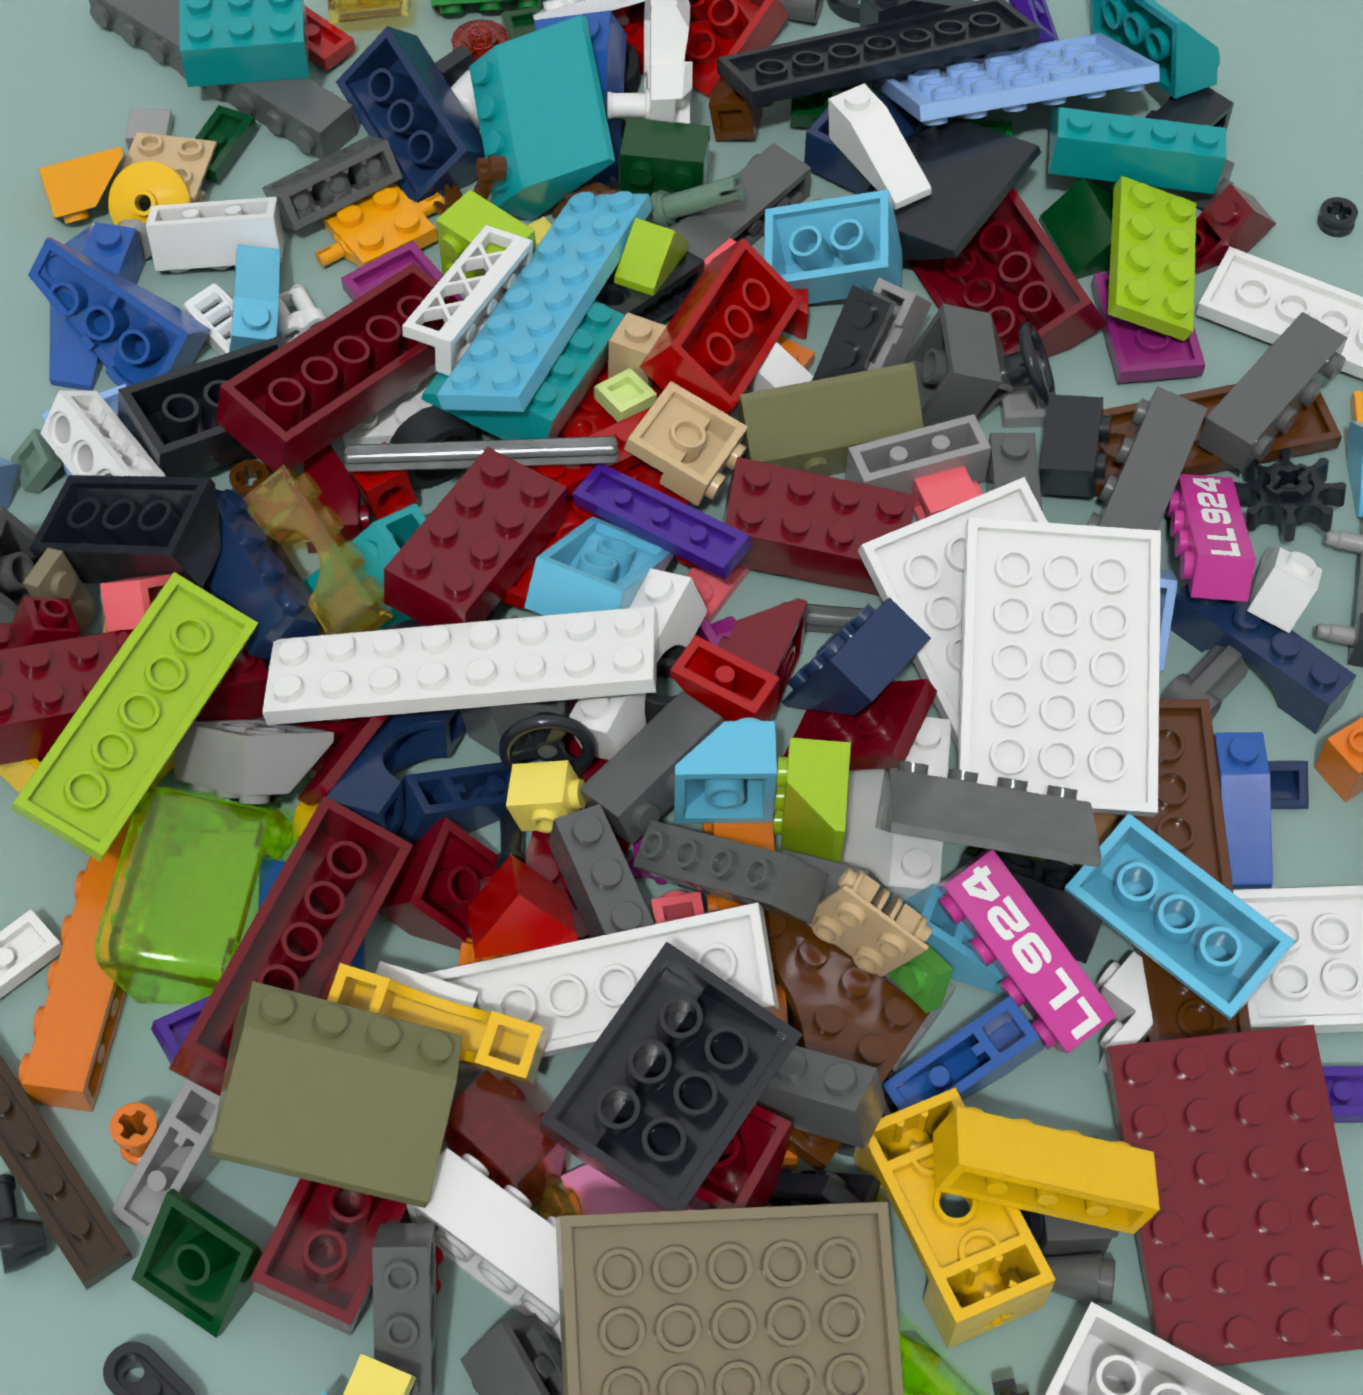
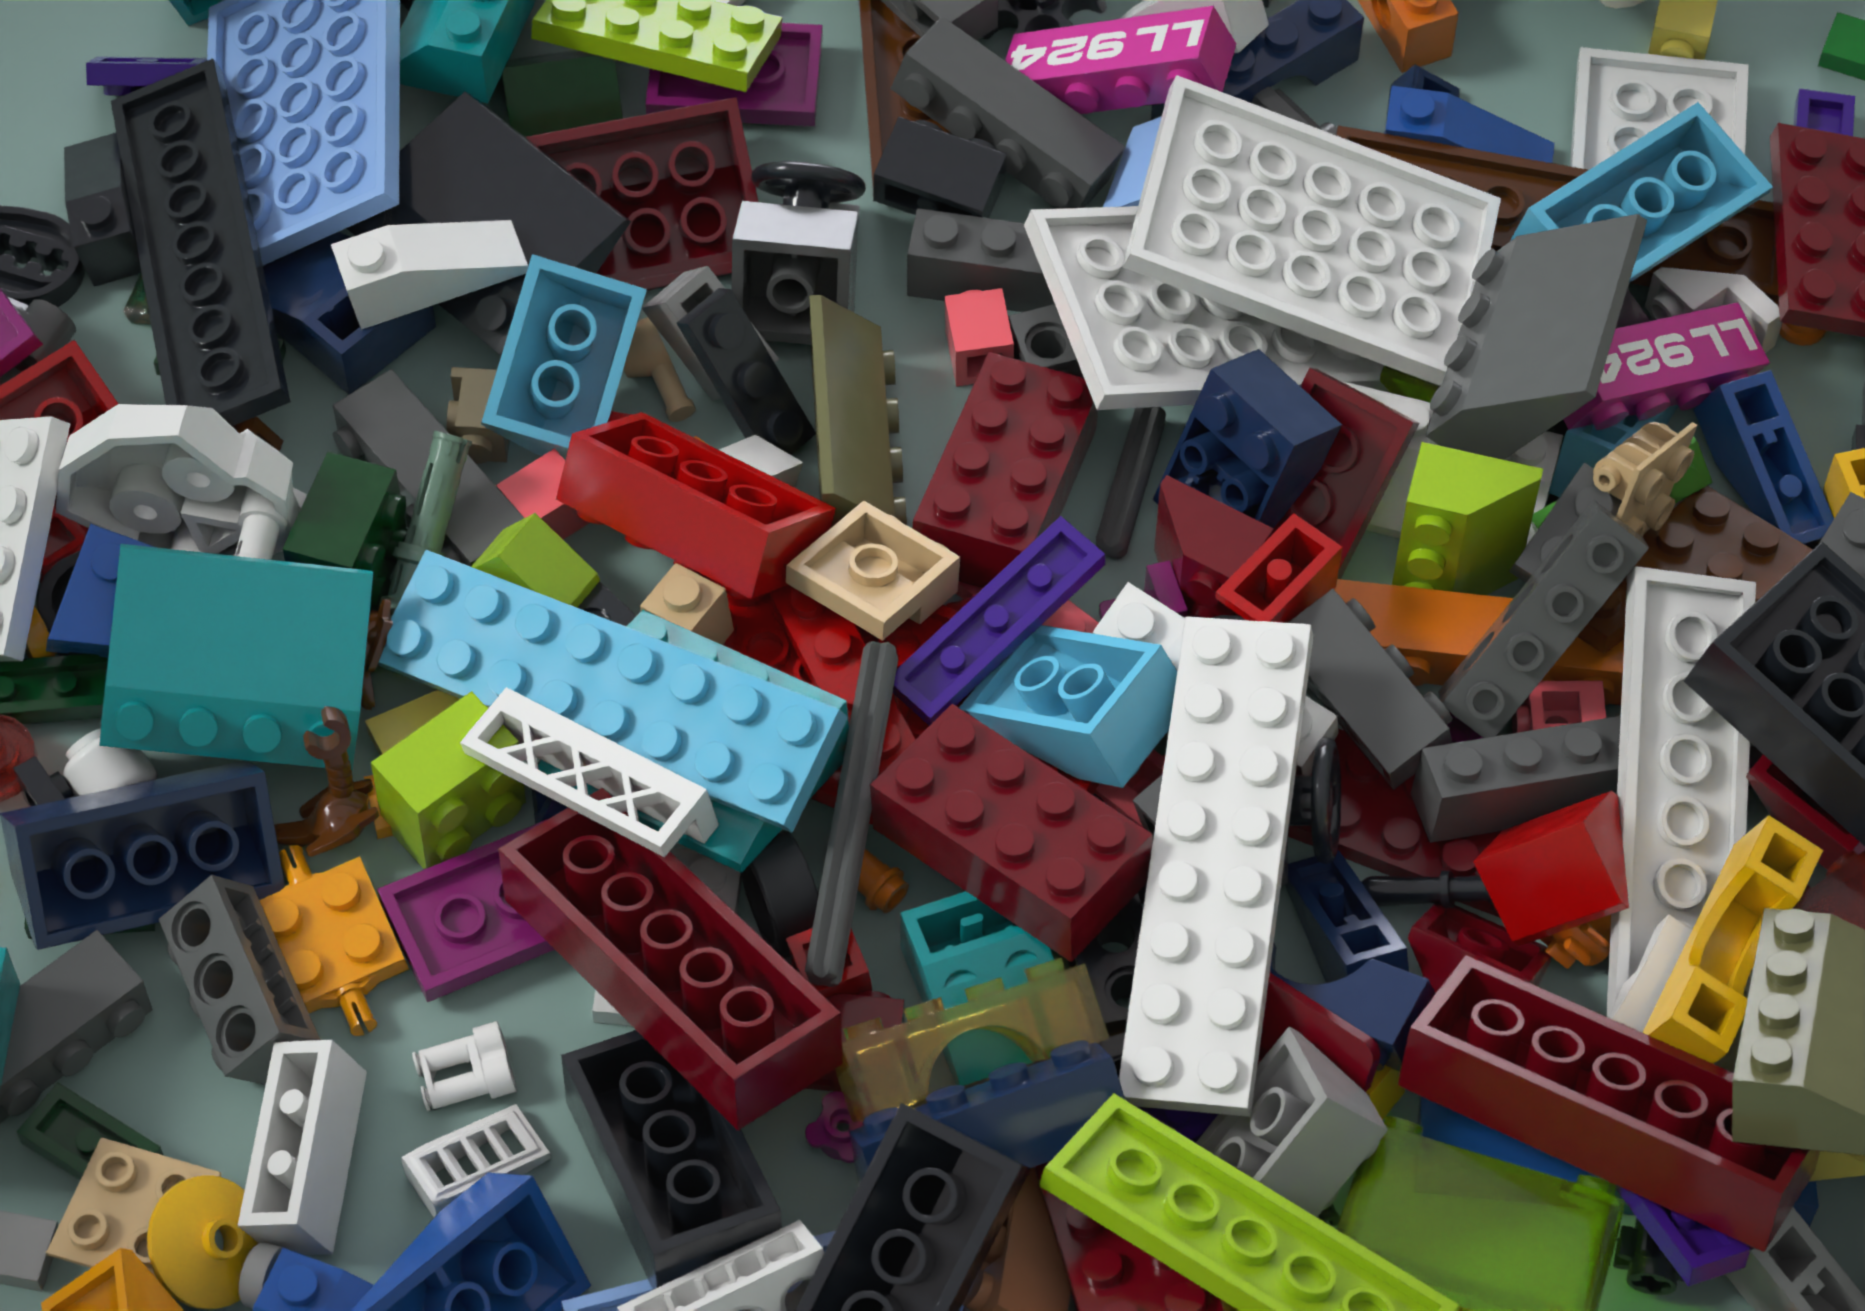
camera: 80 degrees left, 0 degrees up
(129, 599) = (1041, 1249): coral brick -> none
(243, 472) = (773, 1133): reddish brown bush -> none
(255, 296) = (463, 1098): medium azure slope -> none
(542, 793) = (1379, 823): light yellow brick -> none
(624, 395) = (760, 638): yellowish green plate -> none
(729, 775) = (1407, 587): medium azure slope -> none
(920, 452) = (923, 347): light grey brick -> none

